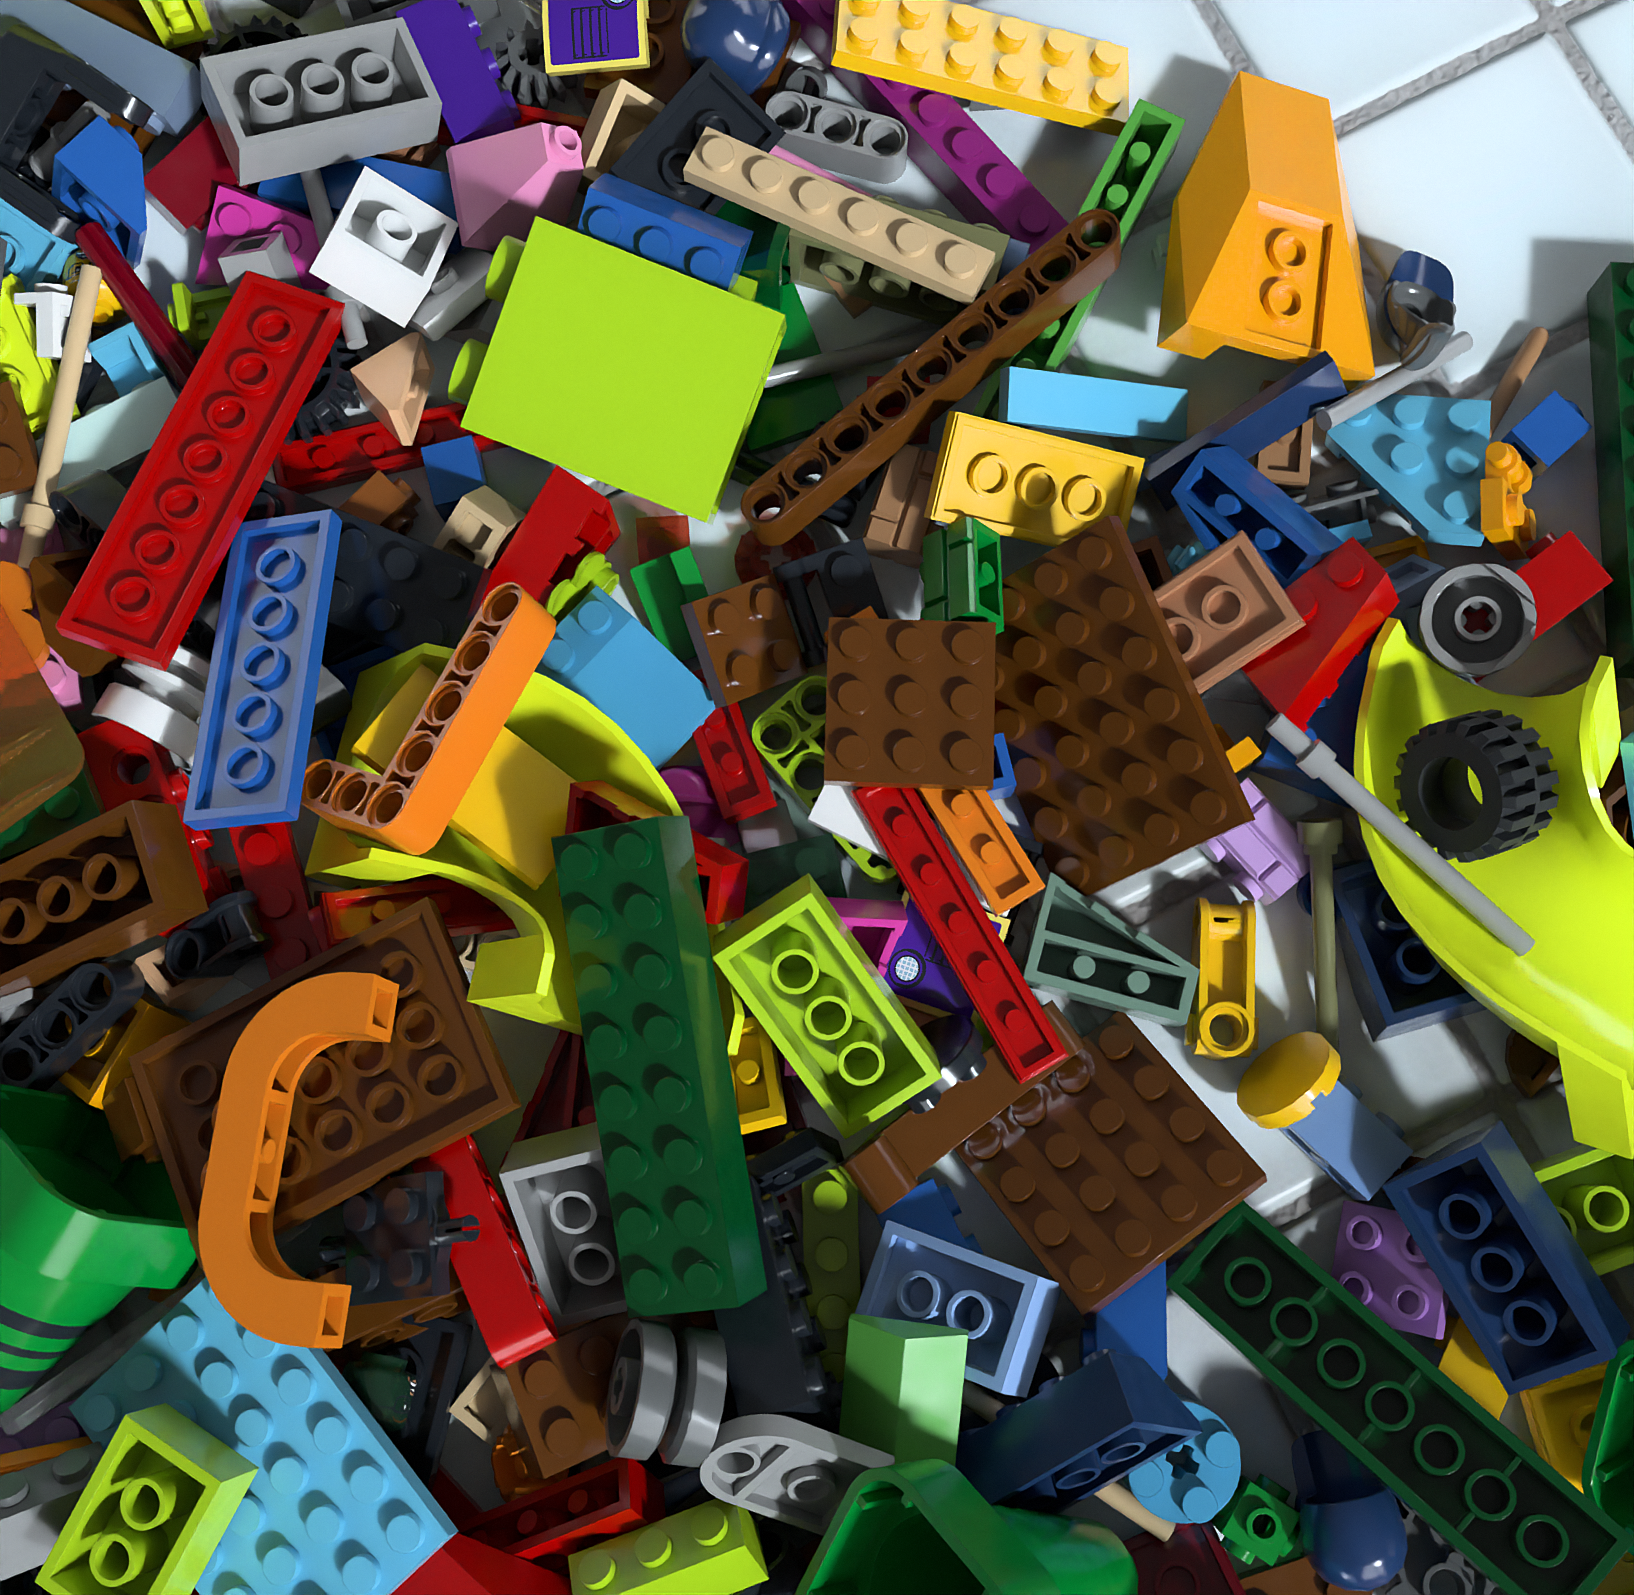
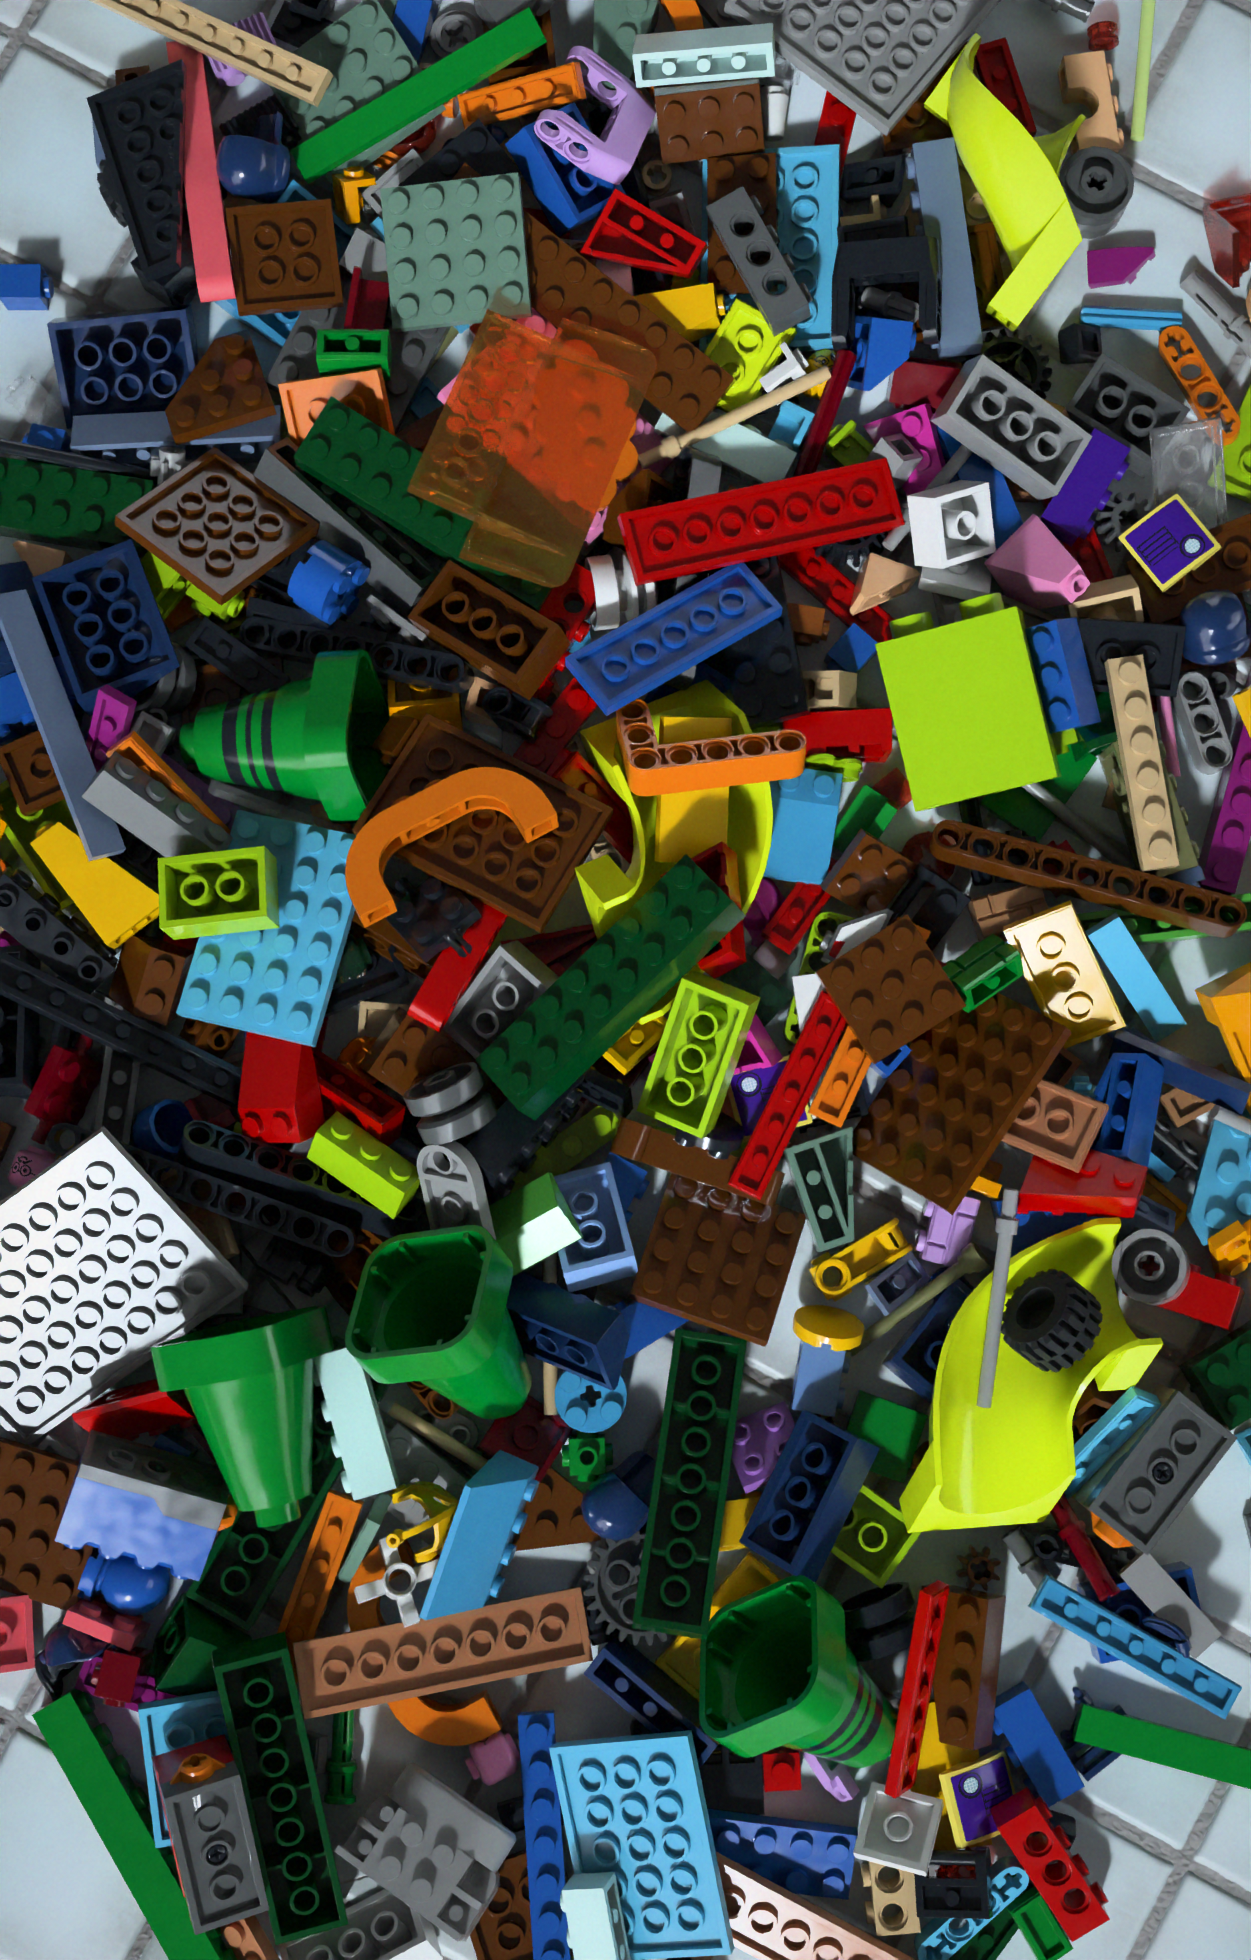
camera: 55 degrees right, 5 degrees up
(806, 706) = (852, 933): none -> slope
(1286, 955) = (896, 1283): none -> sand blue slope
(1464, 1093) = (890, 1428): none -> green tile

